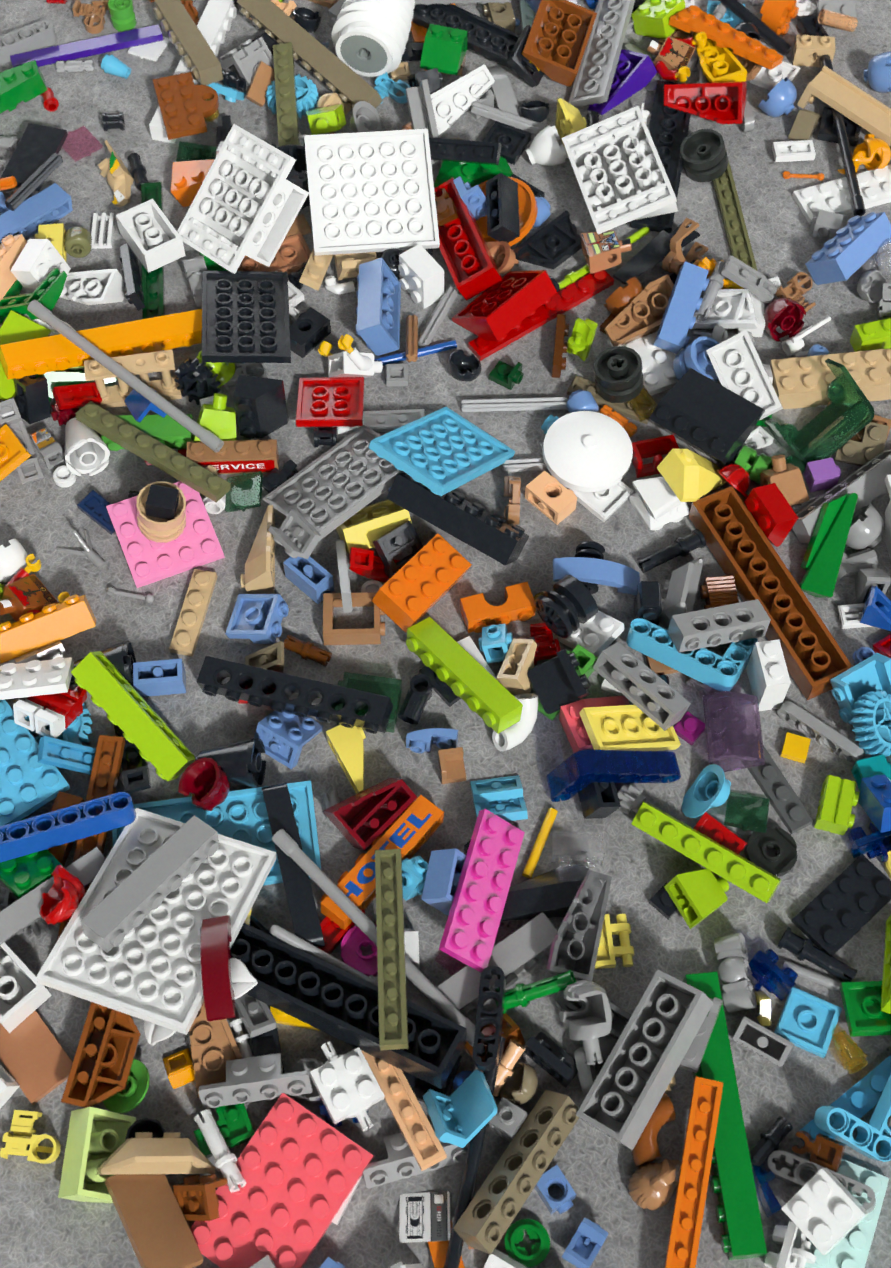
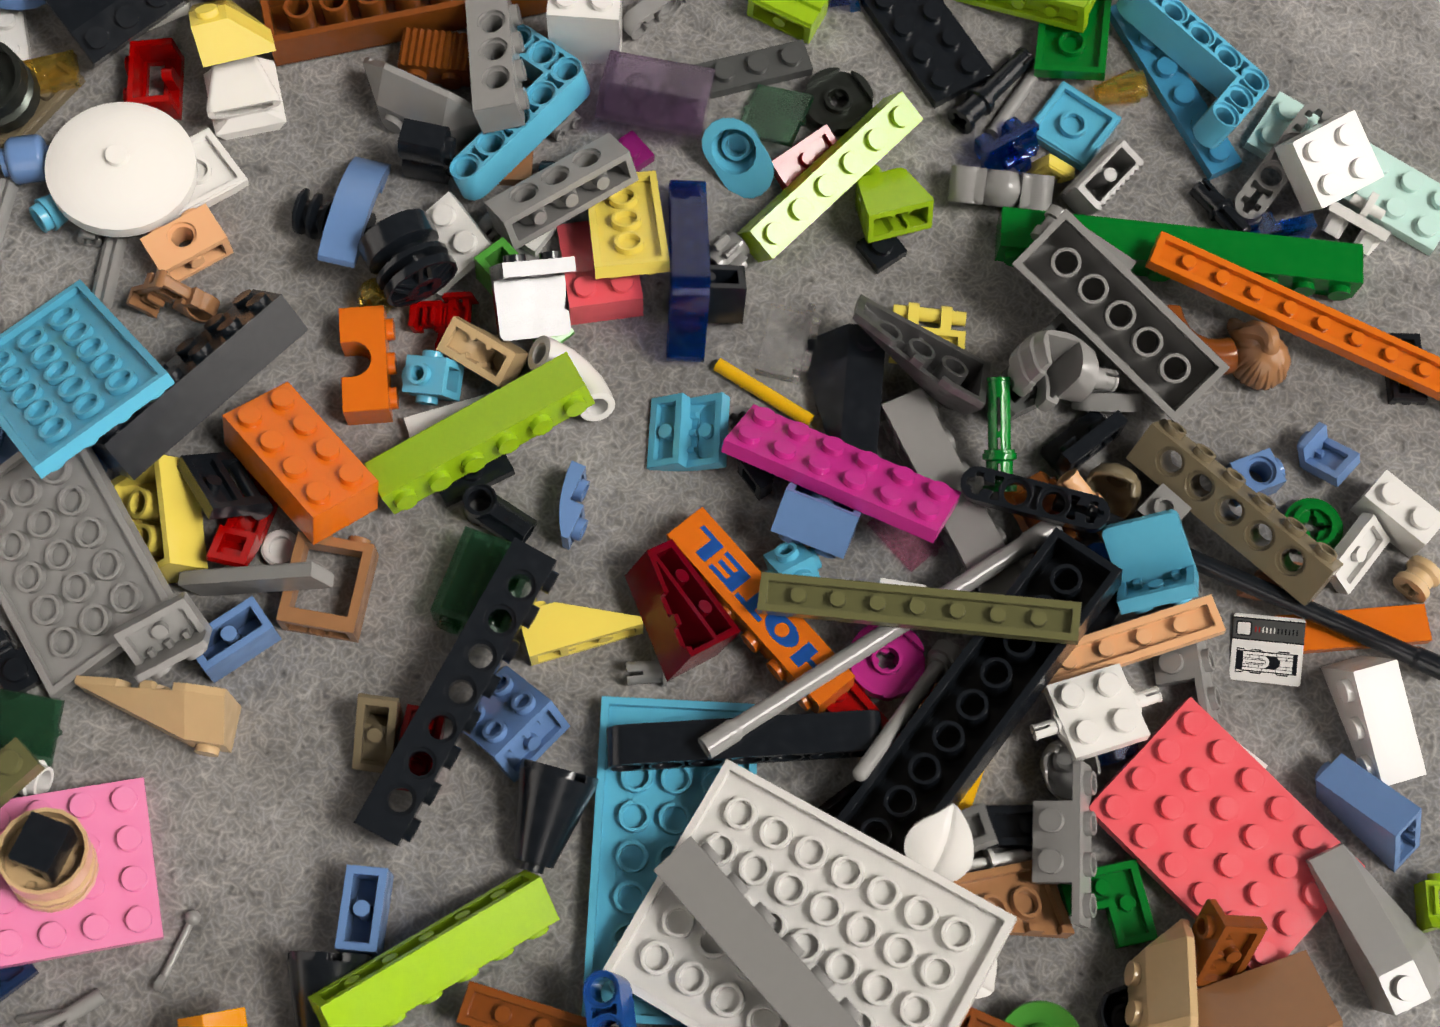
camera: 85 degrees left, 10 degrees up
(134, 767) = (521, 974): black slope -> none
(179, 1068) = (1019, 960): light orange slope -> none
(193, 612) = (241, 844): tan plate -> none
(206, 783) = (588, 854): dark red helmet -> none
(216, 968) = (919, 858): dark red slope -> none
(224, 1158) = (1158, 908): white pin -> none
(257, 618) = (286, 737): medium blue plate -> none
(307, 650) = (365, 668): reddish brown pin -> none
(451, 765) = (621, 487): medium nougat panel -> none
(630, 428) = (49, 128): orange axle -> none
(680, 547) = (329, 88): black pin -> none
(795, 747) = (689, 31): yellow tile -> none
(823, 1150) = (1247, 151): reddish brown plate -> none

